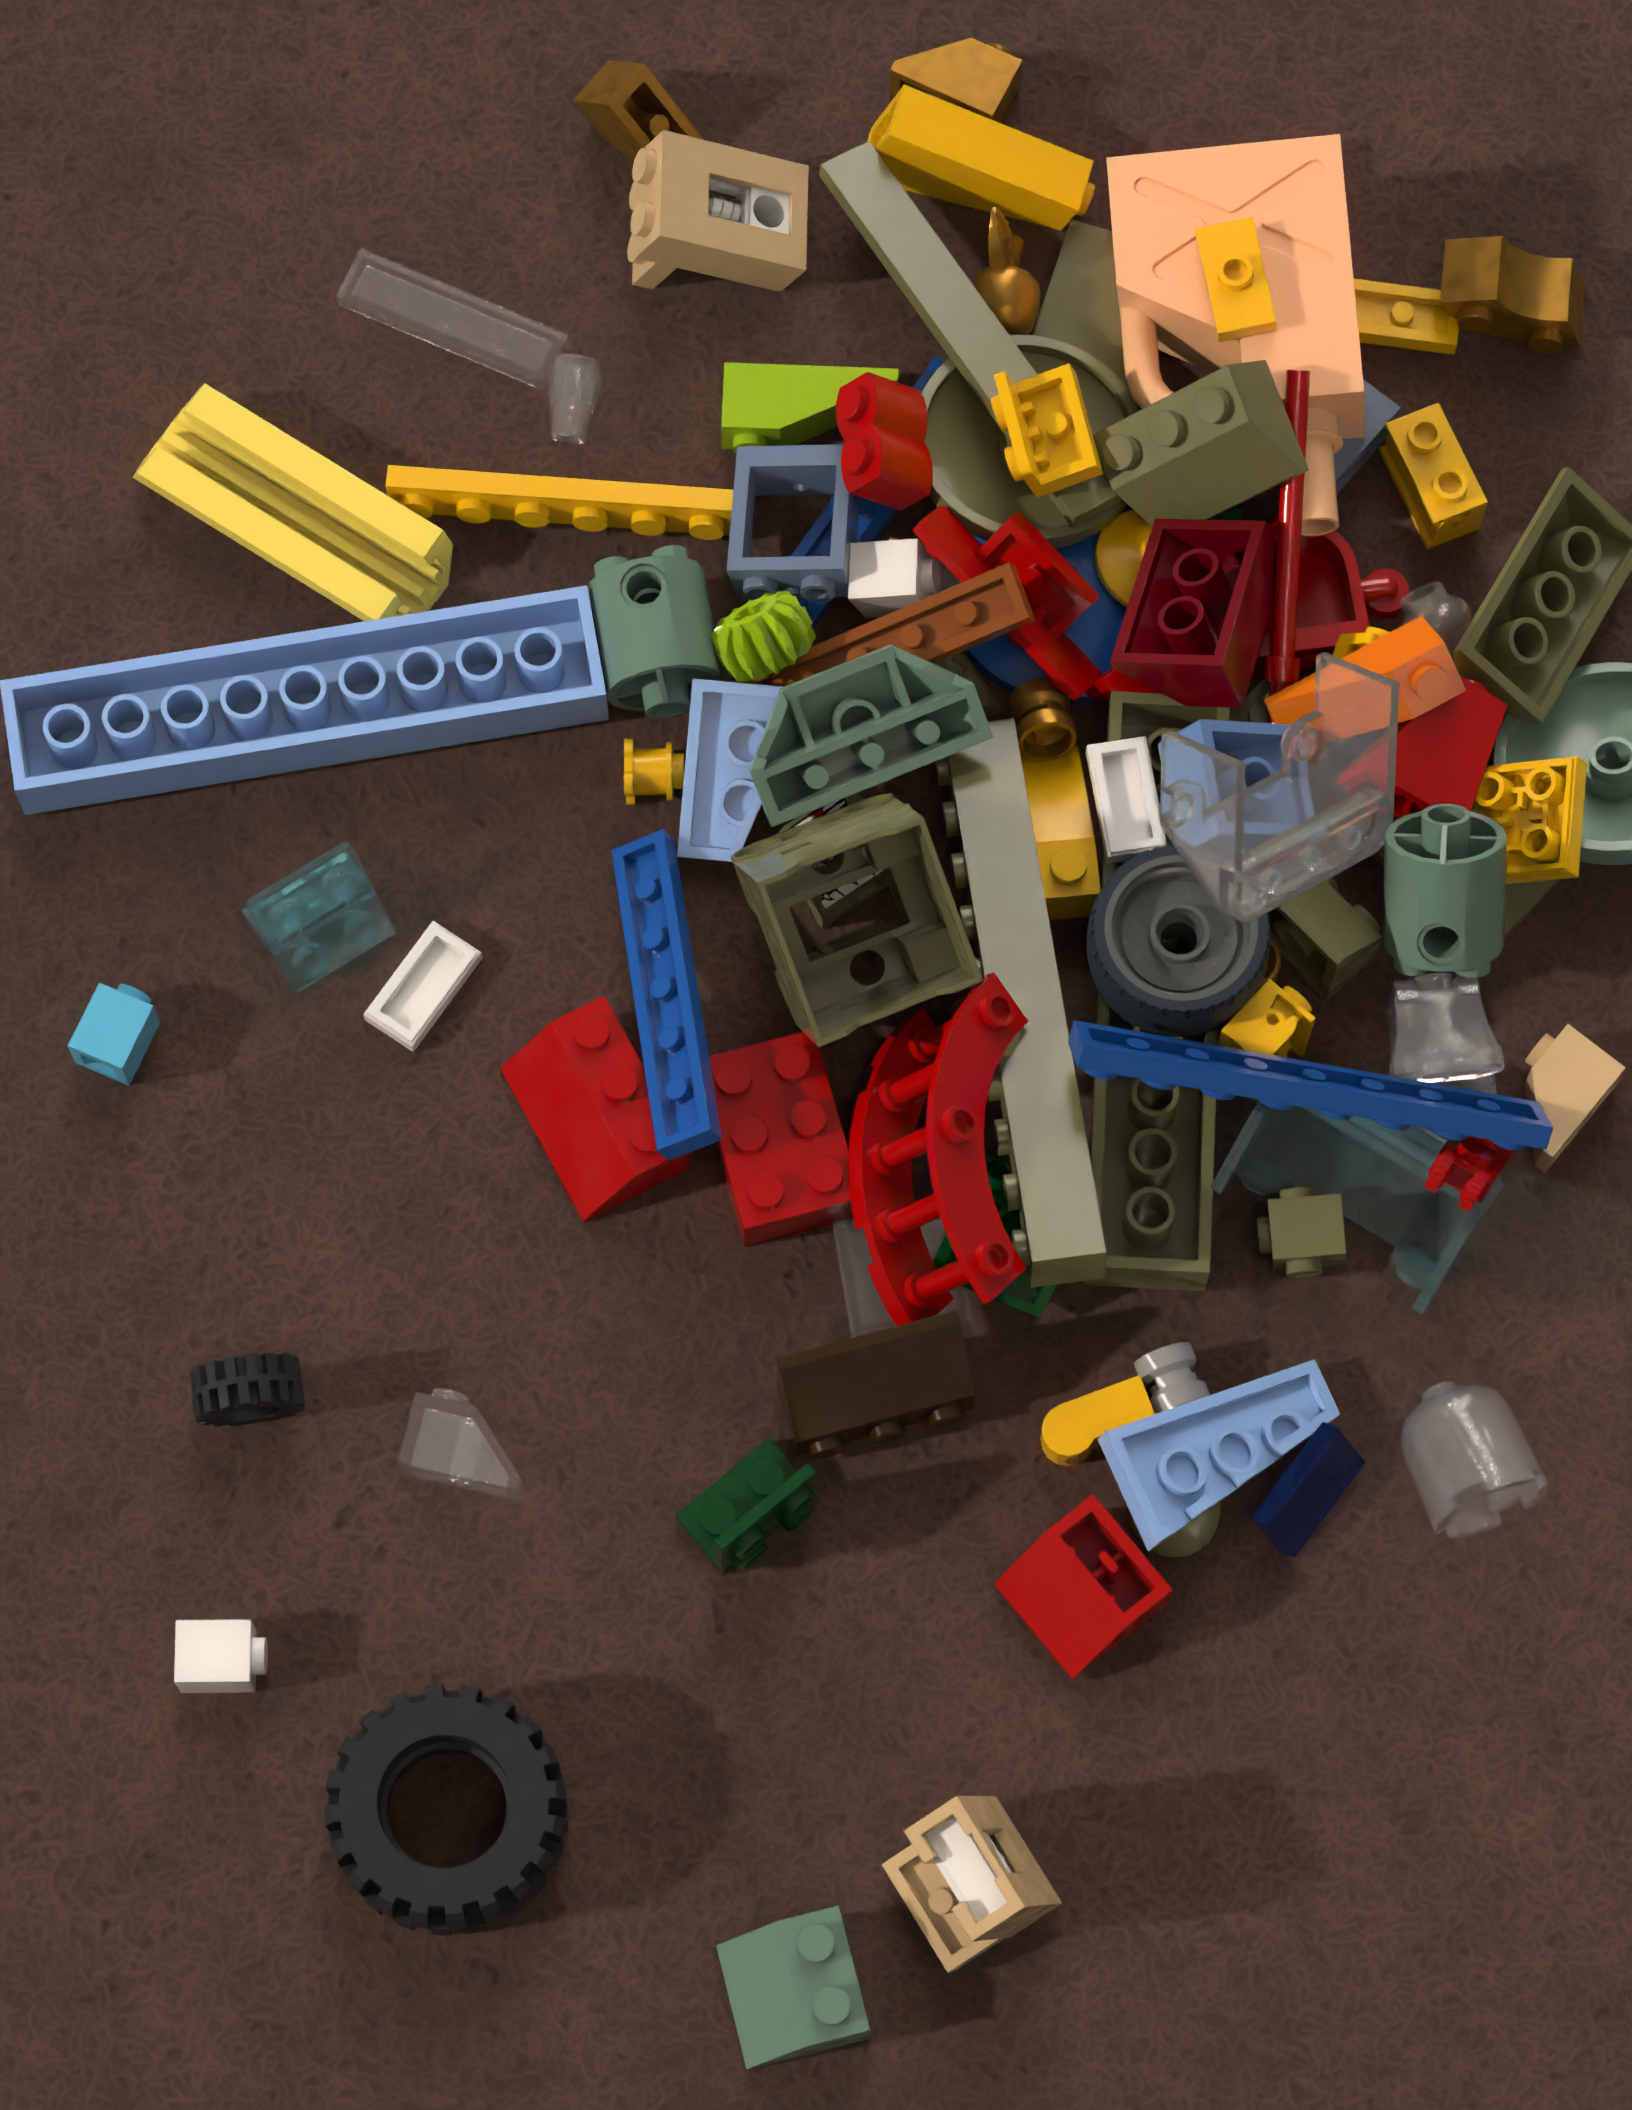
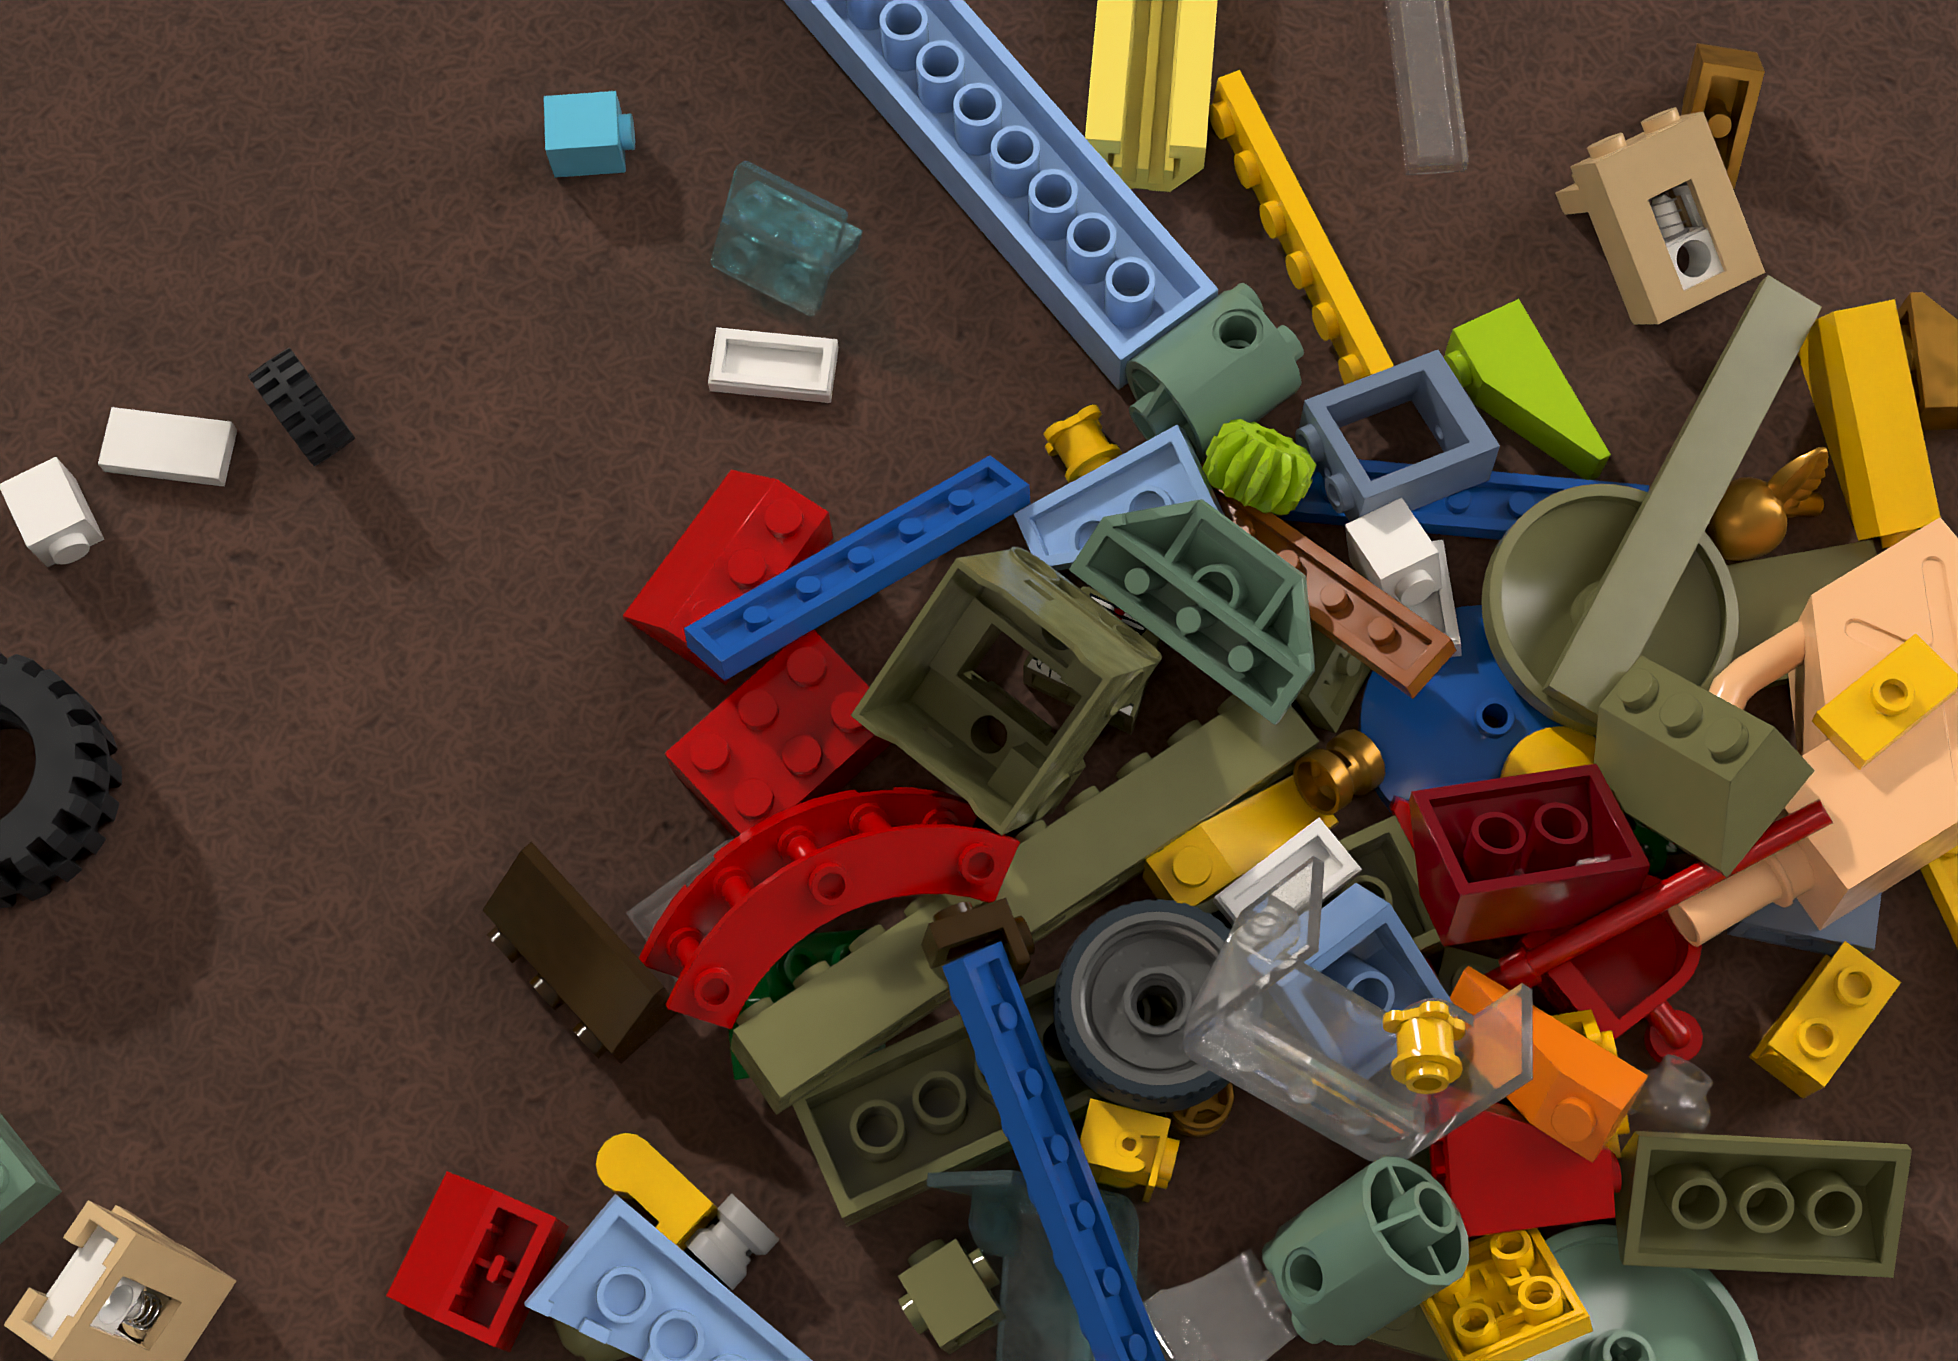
camera: 65 degrees right, 0 degrees up
(202, 1533) = (167, 446): none -> white tile
(455, 1447) = (343, 615): clear slope -> none
(573, 394) = (1410, 196): clear cone -> none
(750, 1506) = (412, 902): dark green bracket -> none
(884, 441) = (1518, 470): red brick -> none
(1044, 1049) = (965, 929): none -> dark brown bracket
(1046, 430) = (1618, 607): yellow bracket -> none
(1051, 585) = (1464, 694): red bracket -> none
(1324, 754) = (1425, 1046): none -> yellow brick
(1324, 937) = (1271, 1162): olive slope -> none

